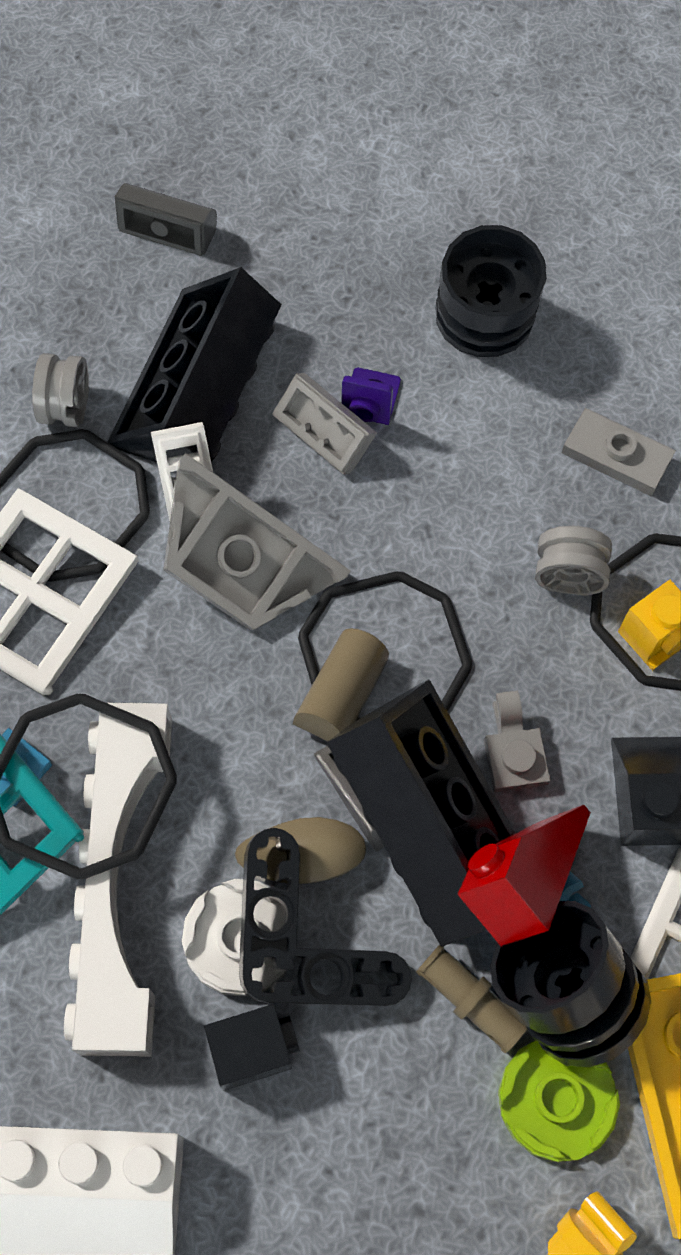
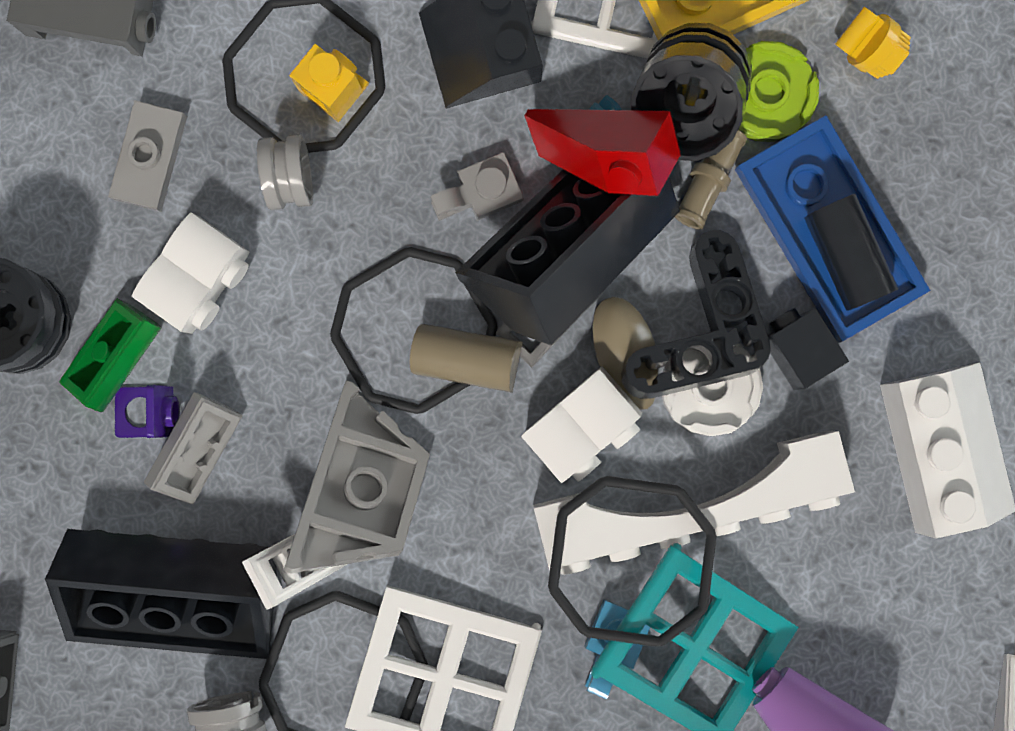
camera: 100 degrees left, 20 degrees up
(237, 781) = (583, 426): none -> white brick
(344, 1129) = (851, 252): none -> black brick
(377, 1125) = (803, 176): none -> blue plate
(432, 376) = (109, 355): none -> green brick
(492, 459) = (191, 275): none -> white brick

